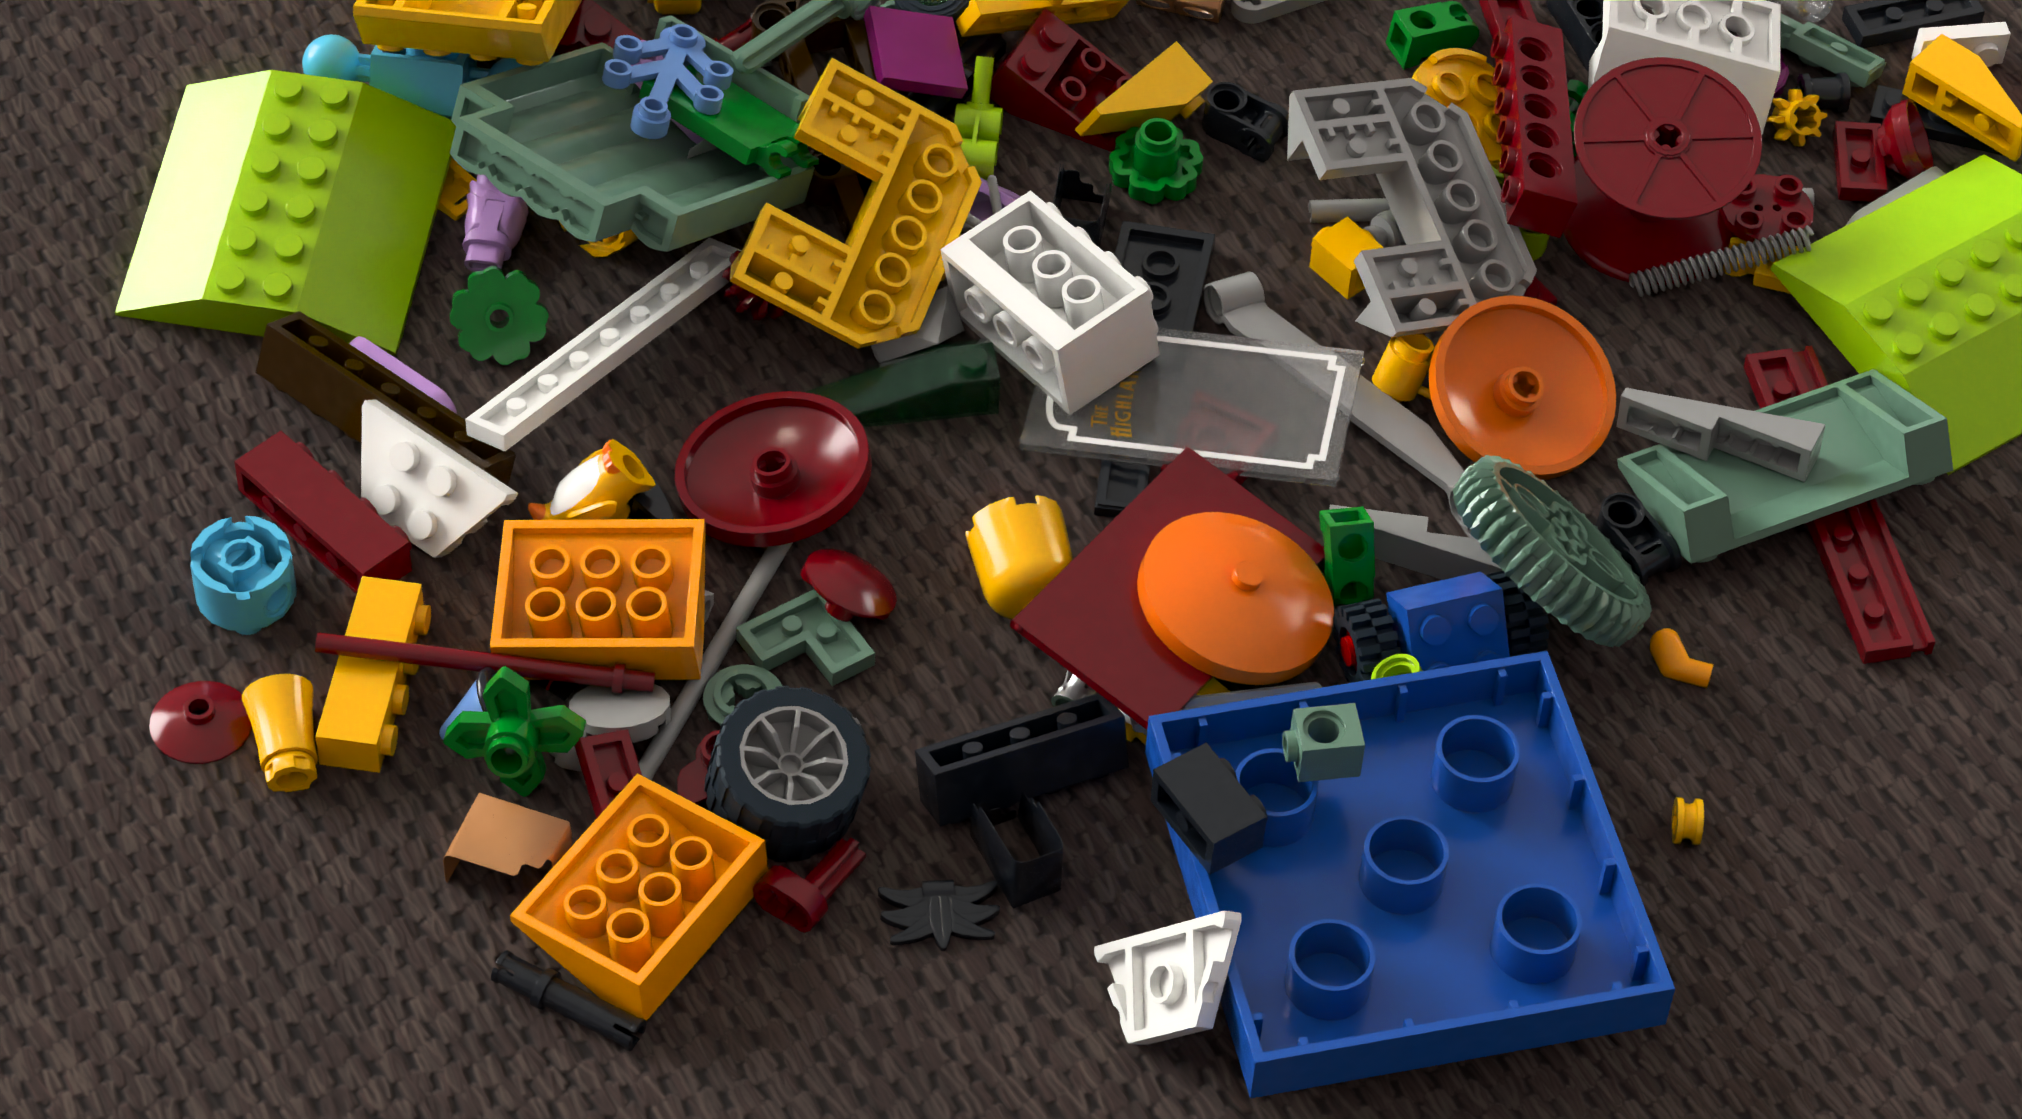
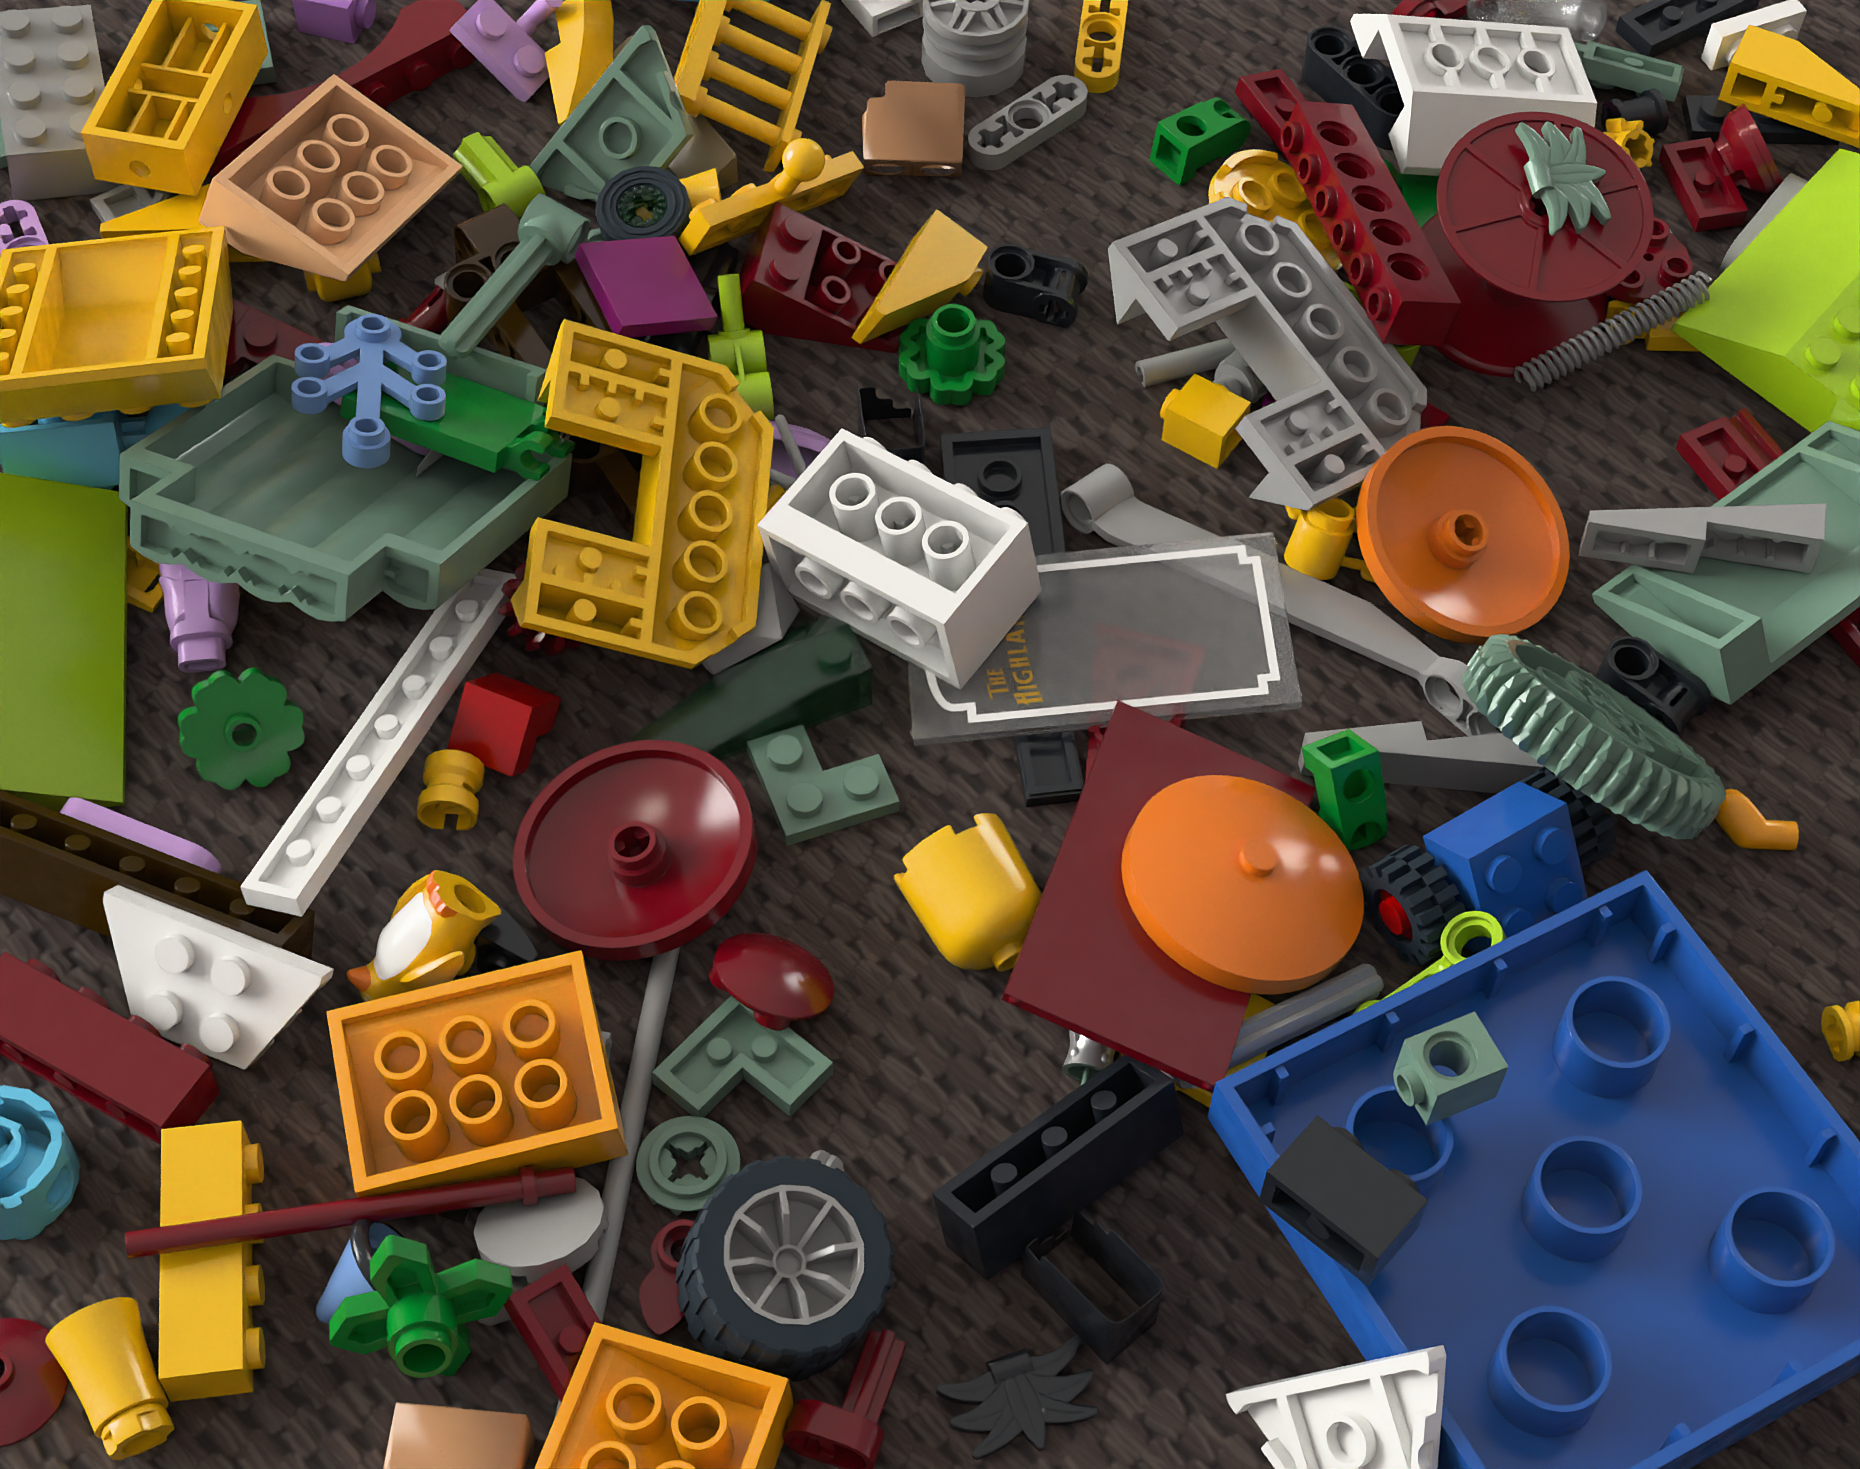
camera: 15 degrees left, 5 degrees up
(647, 396) = (451, 787): none -> yellow wheel
(700, 357) = (502, 721): none -> red piece
(925, 470) = (814, 800): none -> sand green plate
(1687, 116) = (1561, 177): none -> sand green piece

